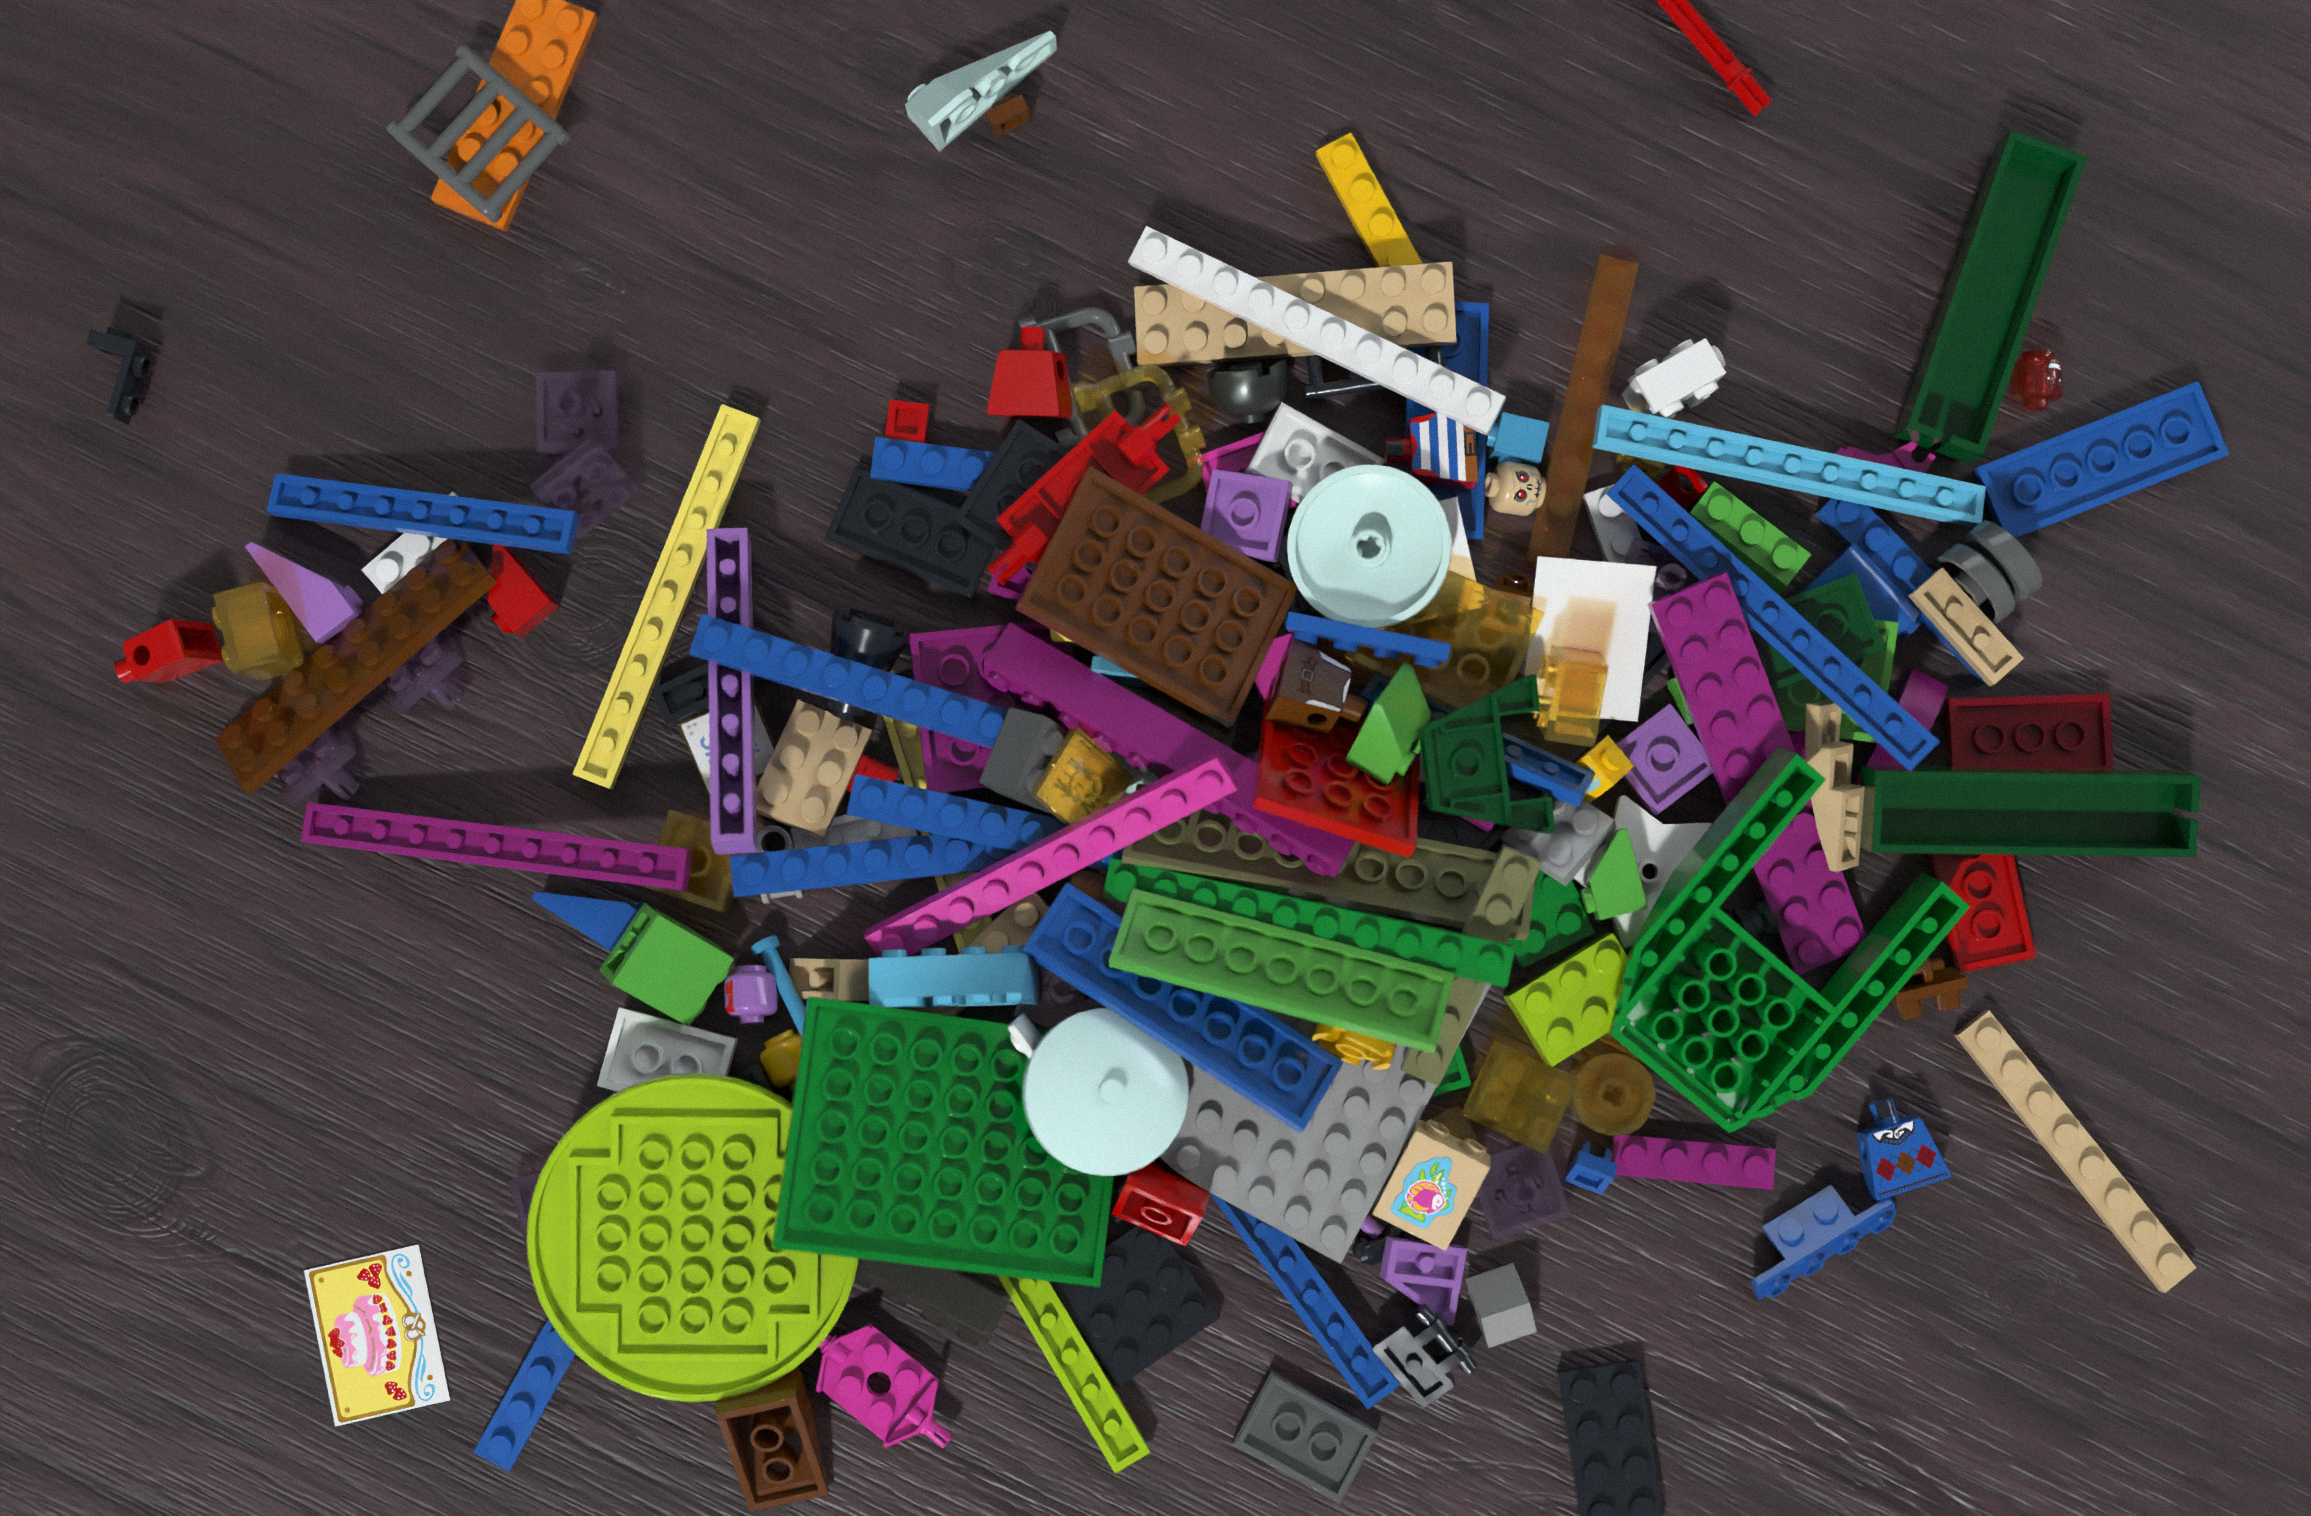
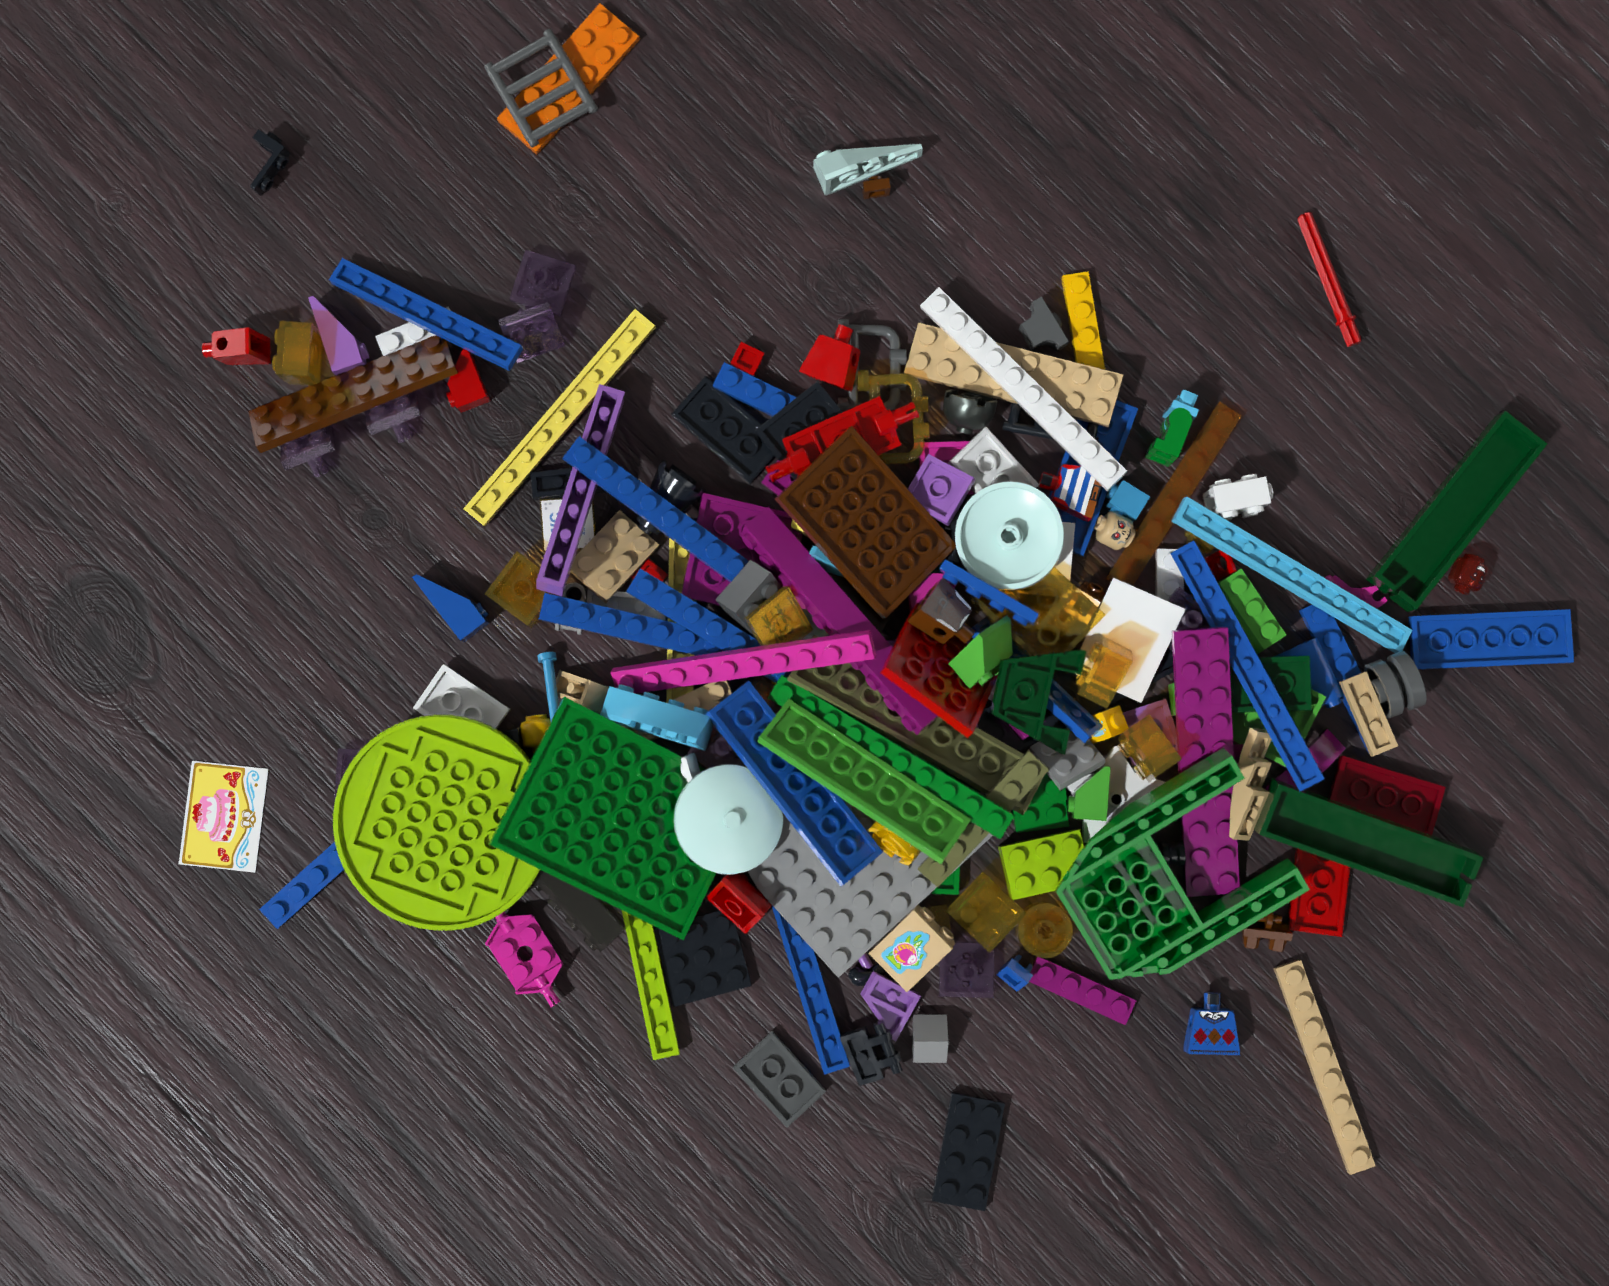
camera: 15 degrees right, 0 degrees up
(497, 846) = (402, 537): magenta plate -> none
(666, 964) = (482, 647): bright green brick -> none
(751, 994) = (528, 684): medium lavender head -> none
(774, 1443) = (447, 968): reddish brown slope -> none
(1314, 234) = (1043, 328): none -> dark grey brick
(1550, 316) = (1173, 429): none -> green hips
(1672, 784) = (1148, 749): none -> clear yellow brick
(1813, 1234) = (1141, 1062): blue bracket -> none

